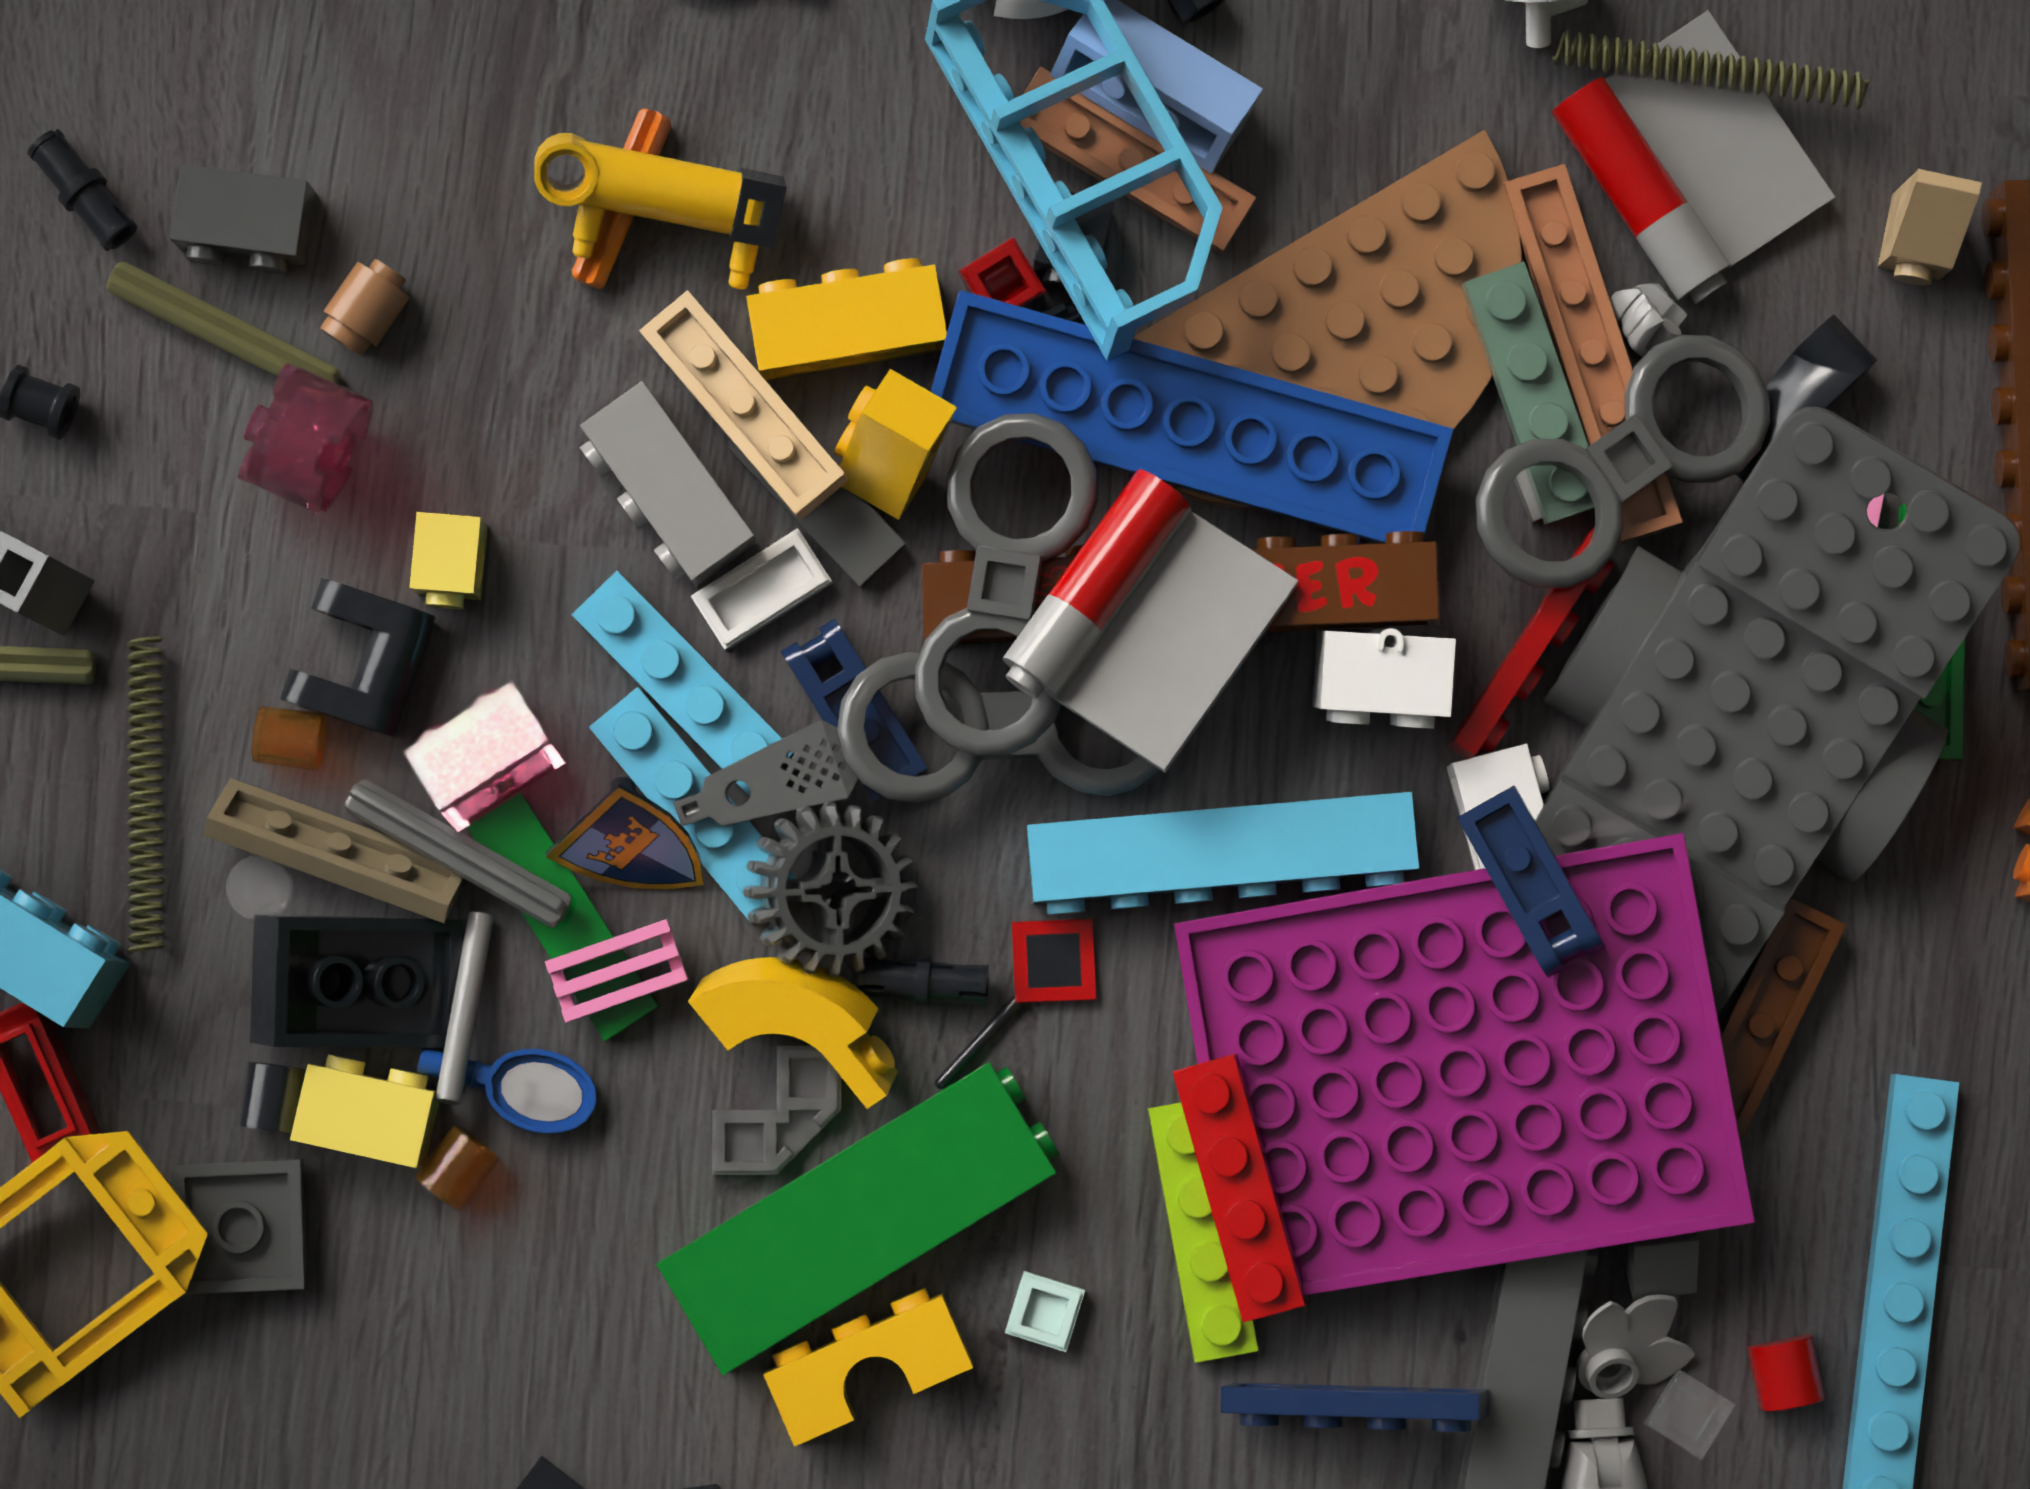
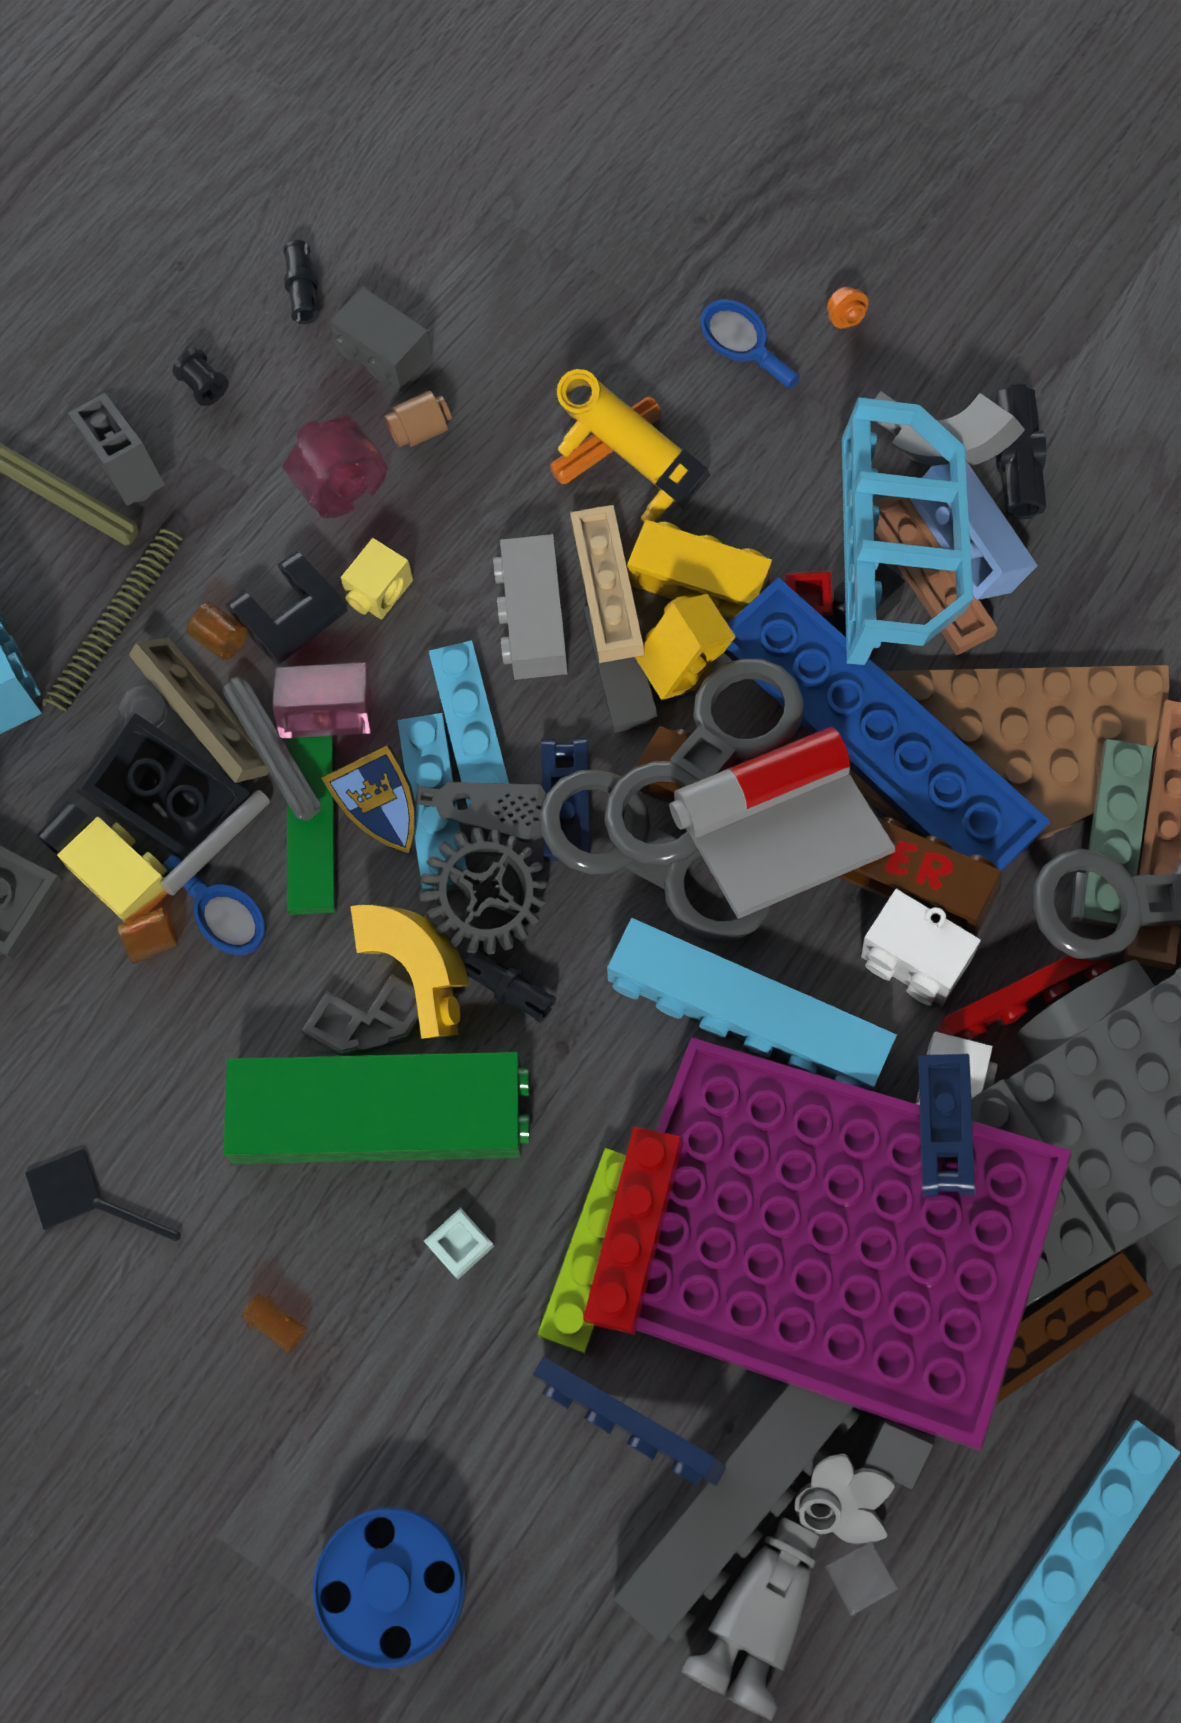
camera: 40 degrees right, 15 degrees down
(211, 323) = (321, 380): olive axle -> none
(564, 988) = (289, 846): bright pink tile -> none
(761, 589) = (553, 700): white tile -> none
(812, 1383) = (279, 1199): yellow arch -> none
(1050, 965) = (596, 1023): piece -> none
(1786, 1373) = (946, 1589): red brick -> none

